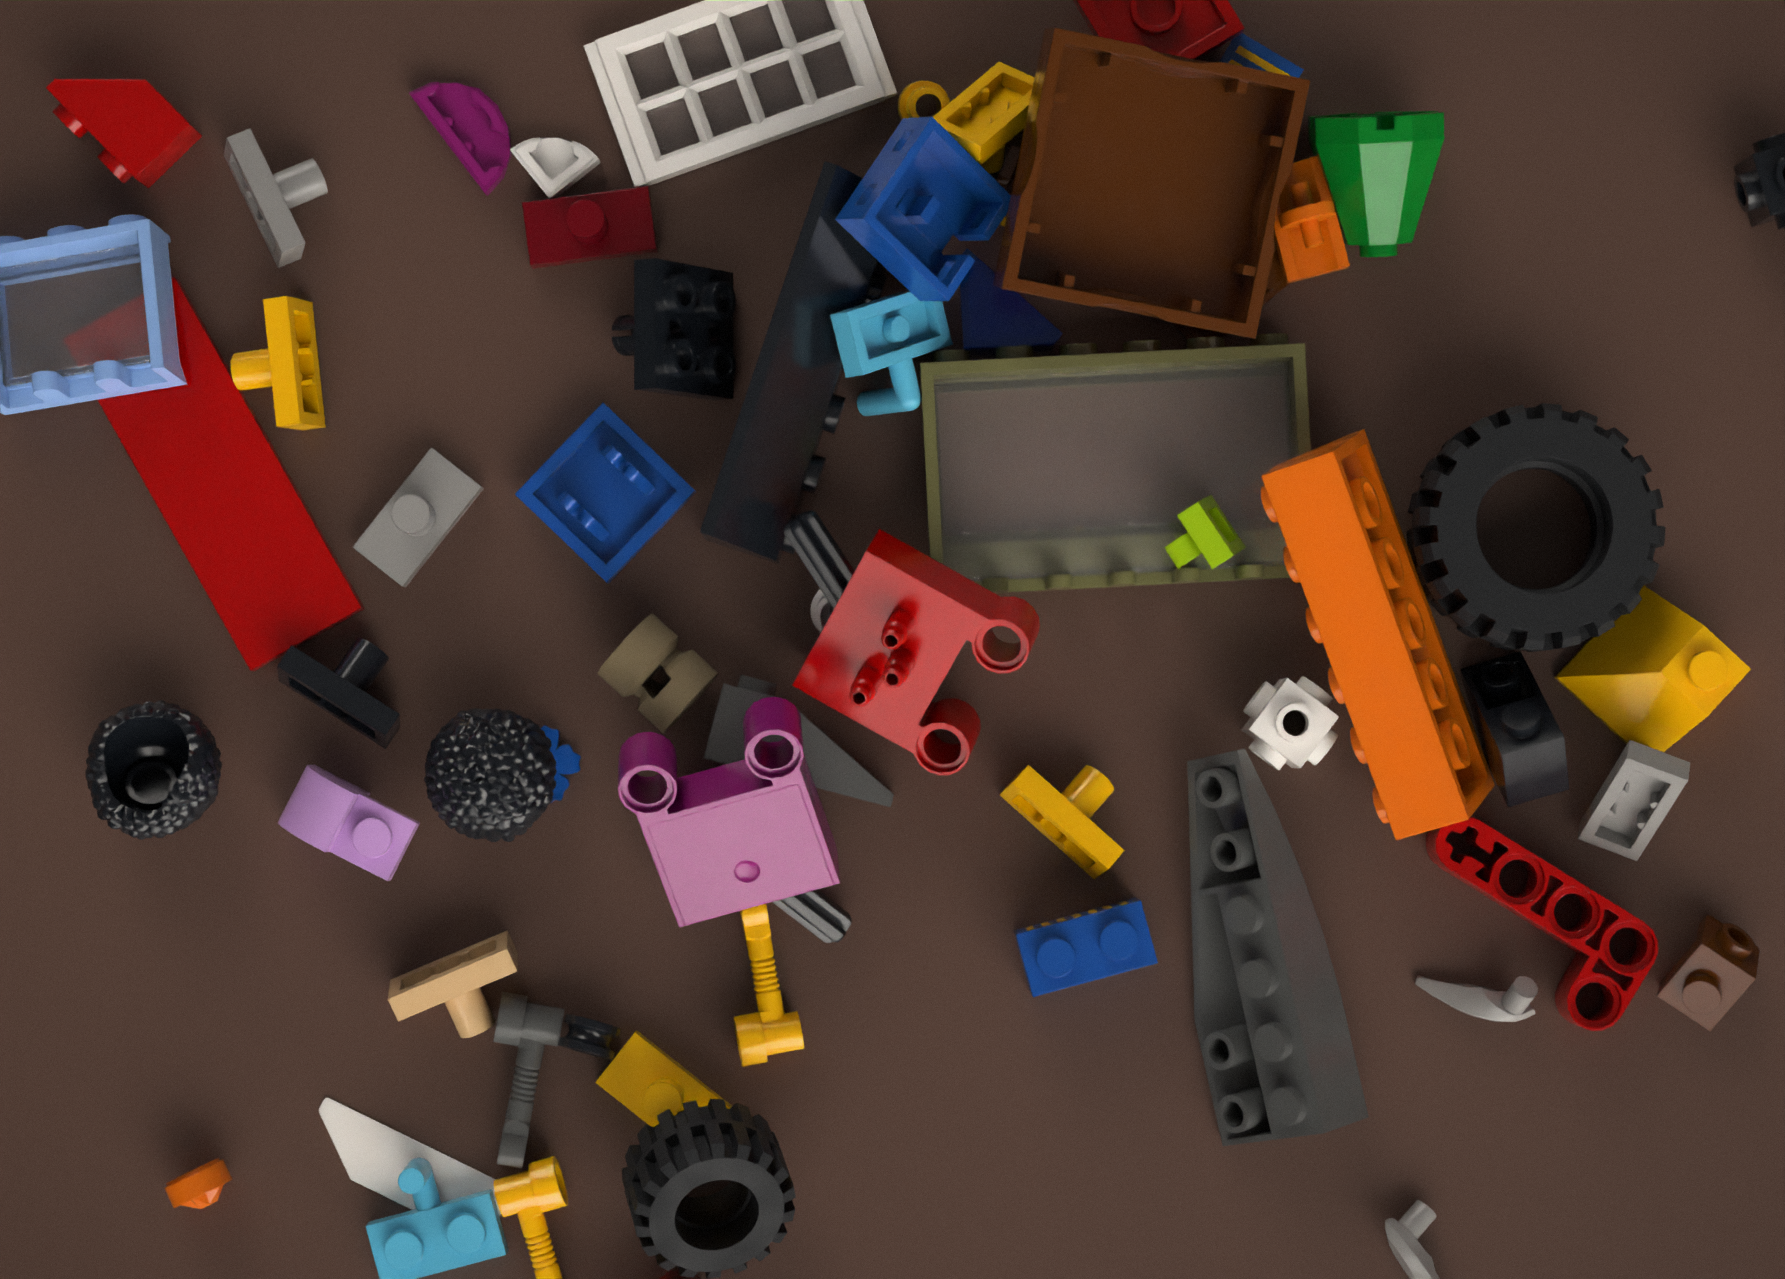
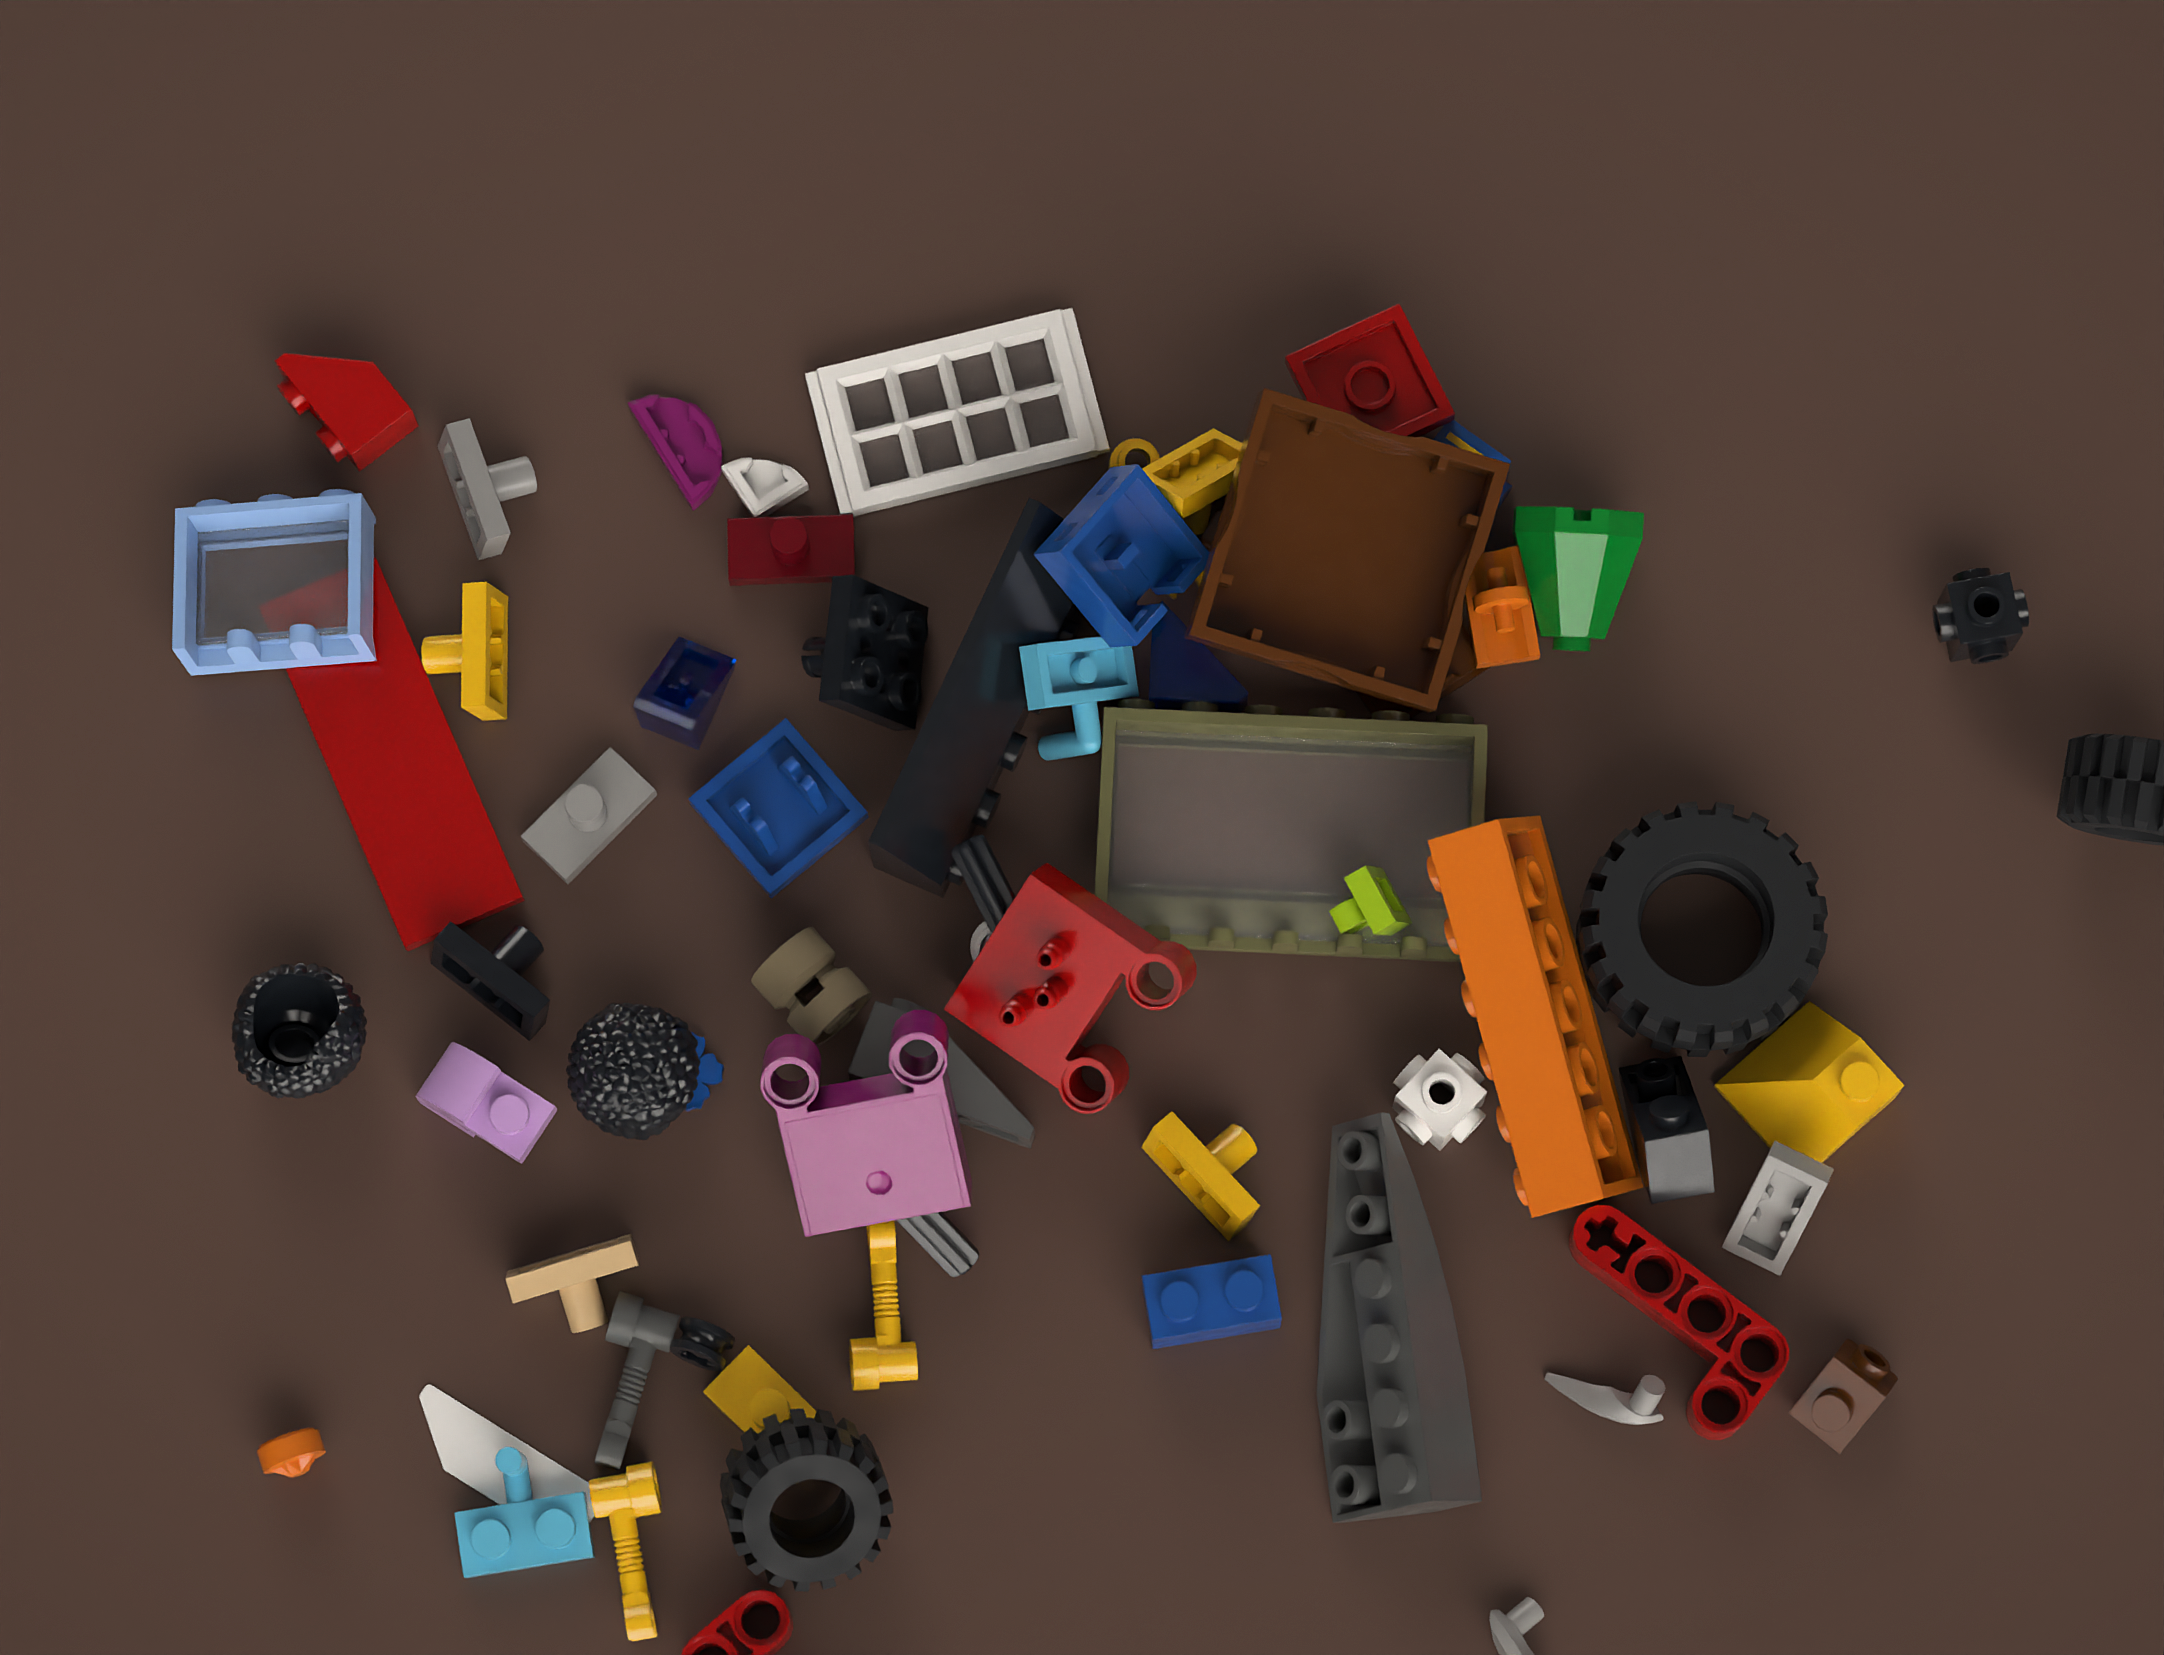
camera: 10 degrees right, 10 degrees down
(499, 383) = (684, 692): none -> clear blue slope

